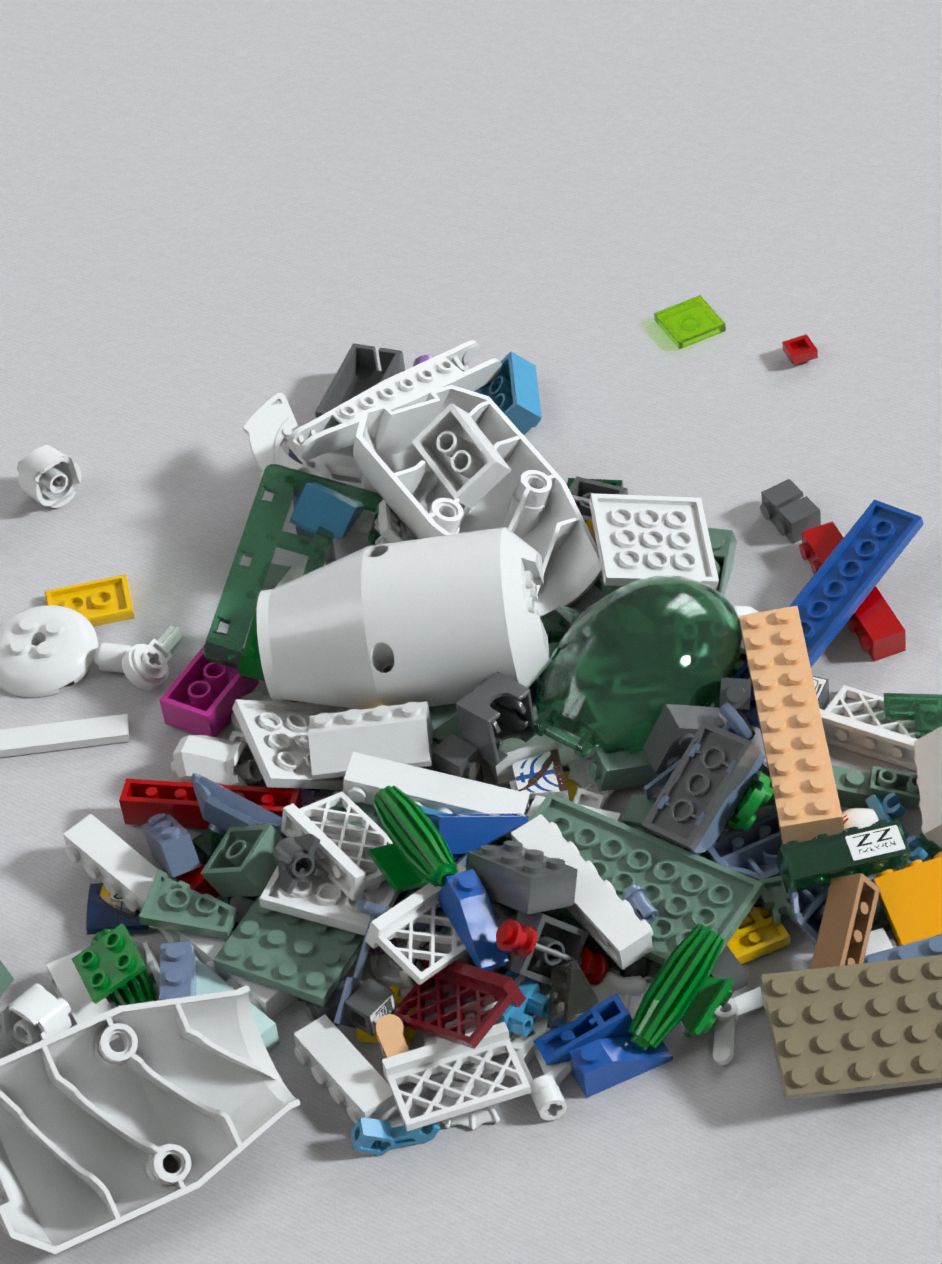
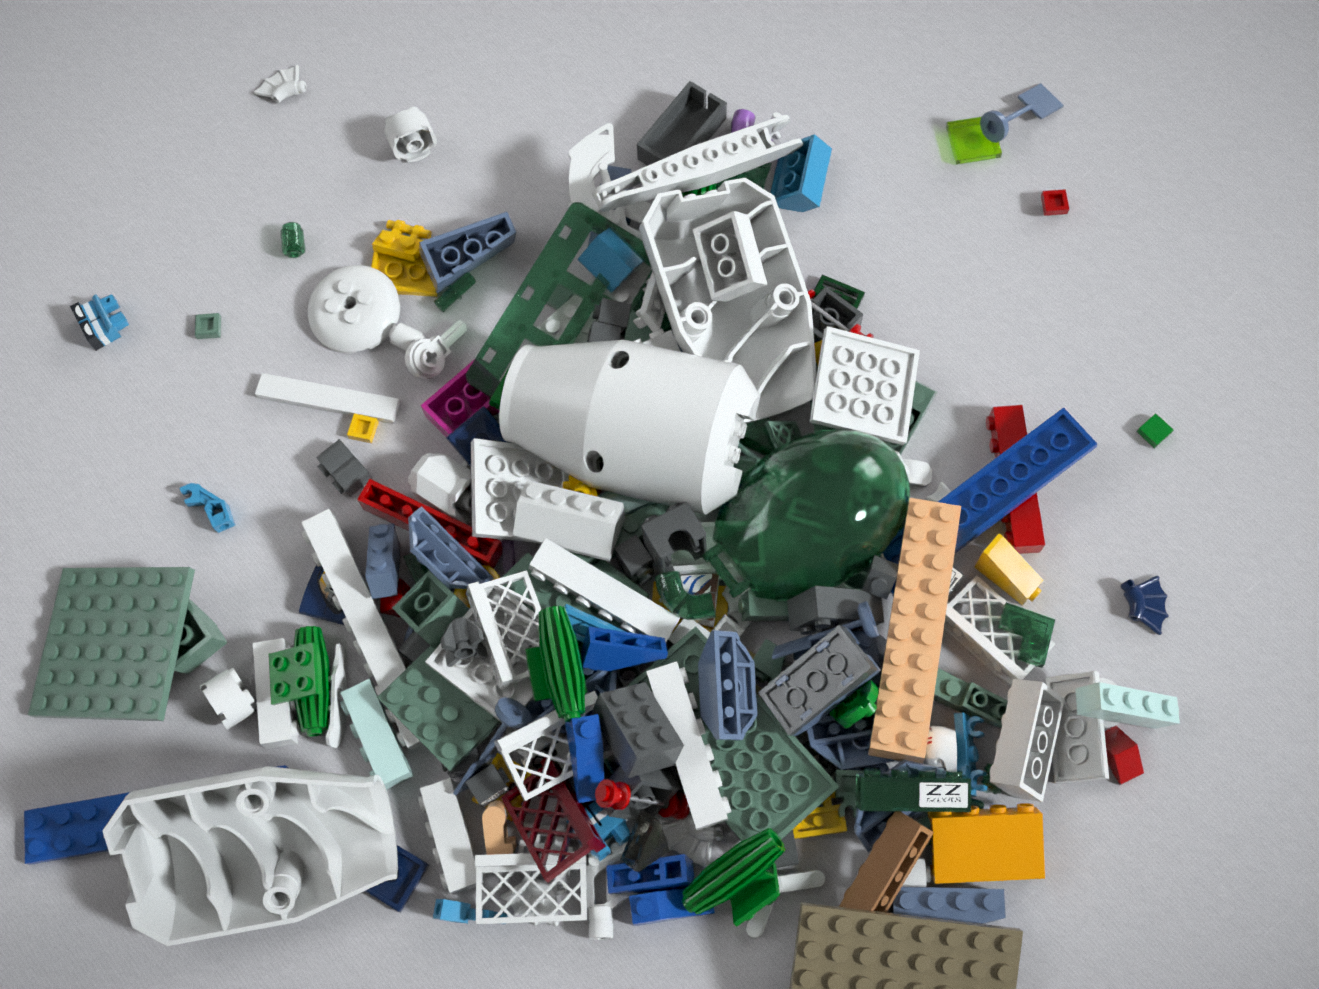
camera: 15 degrees right, 25 degrees up
(75, 574) = (399, 245): none -> yellow plate
(88, 790) = (344, 468): none -> dark grey brick
(95, 753) = (362, 428): none -> yellow tile
(154, 557) = (465, 248): none -> sand blue wedge
(154, 604) = (455, 291): none -> clear green axle
(177, 970) = (339, 719): sand blue brick -> none
(181, 909) = (371, 637): sand green wing -> none
(220, 712) = (478, 426): none -> dark blue tile
(293, 1136) = (398, 891): none -> dark blue tile
(527, 777) = (680, 601): none -> clear green cylinder
(601, 818) = (727, 686): none -> sand blue wedge
(641, 905) = (730, 775): sand blue pin -> none
(708, 297) = (1037, 99): none -> sand blue piece
(788, 513) = (992, 382): dark grey piece -> none
(873, 664) = (1009, 570): none -> yellow slope

